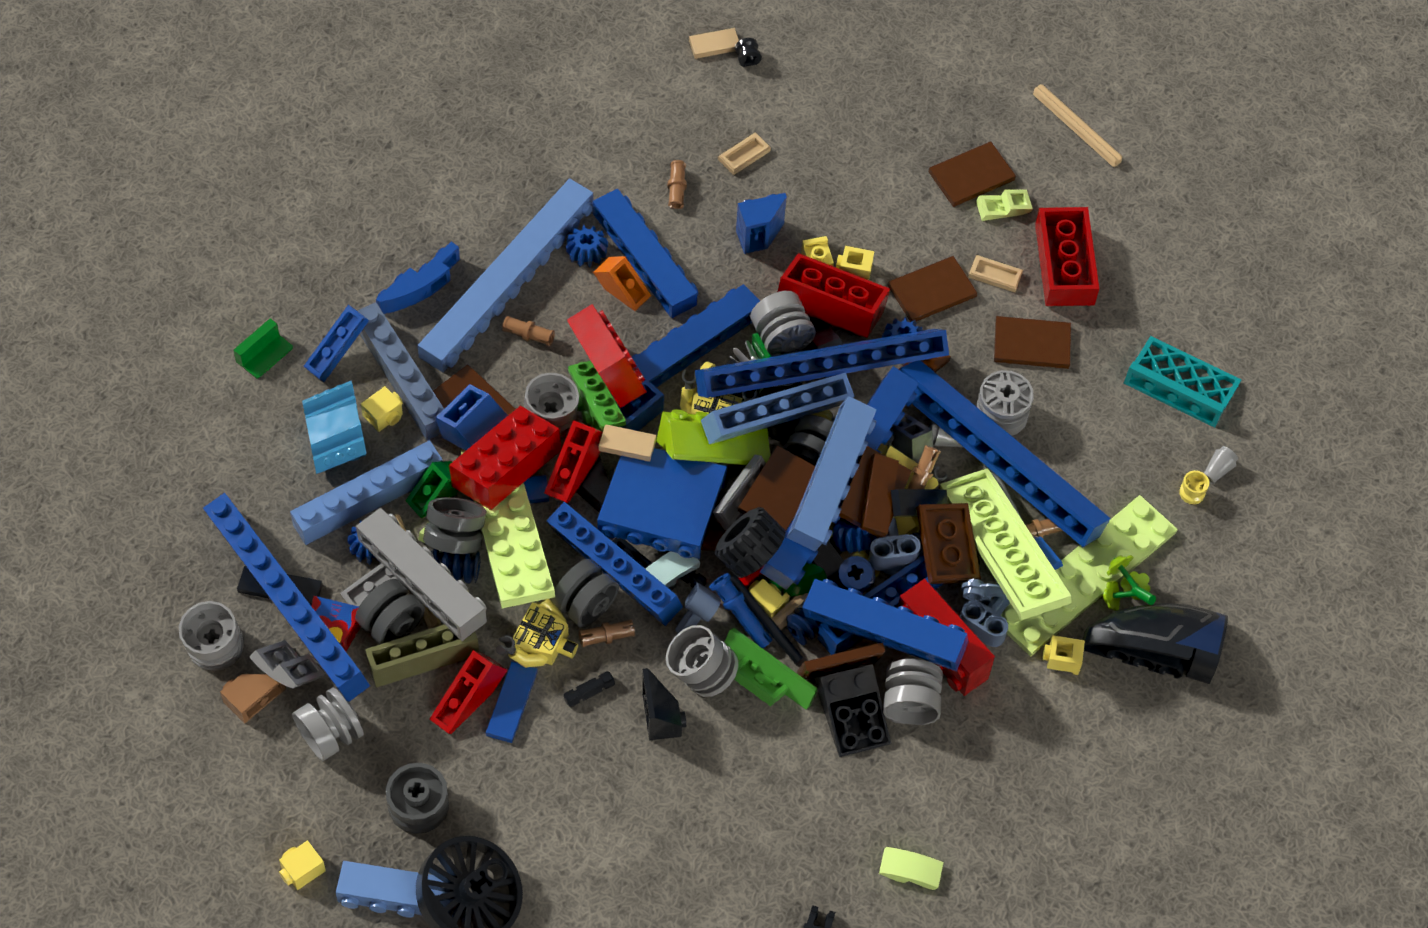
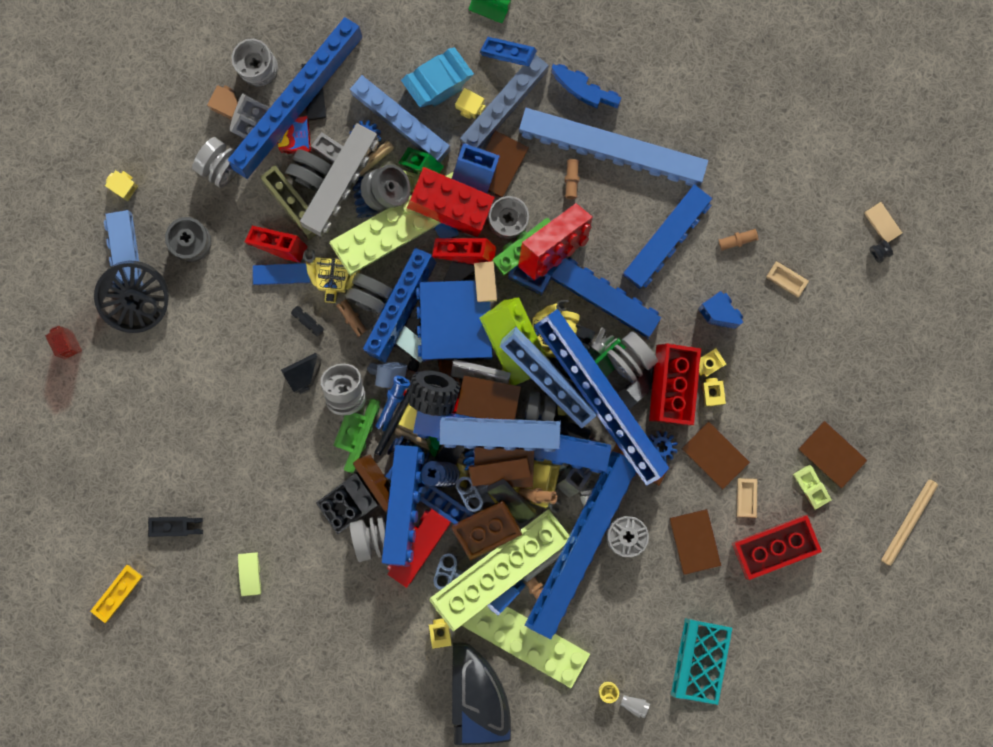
camera: 80 degrees right, 25 degrees up
(586, 246) = (665, 193): blue gear -> none
(622, 281) = (635, 230): orange slope -> none
(978, 591) = (460, 560): sand blue plate -> none
(1134, 584) = (512, 669): lime plant -> none

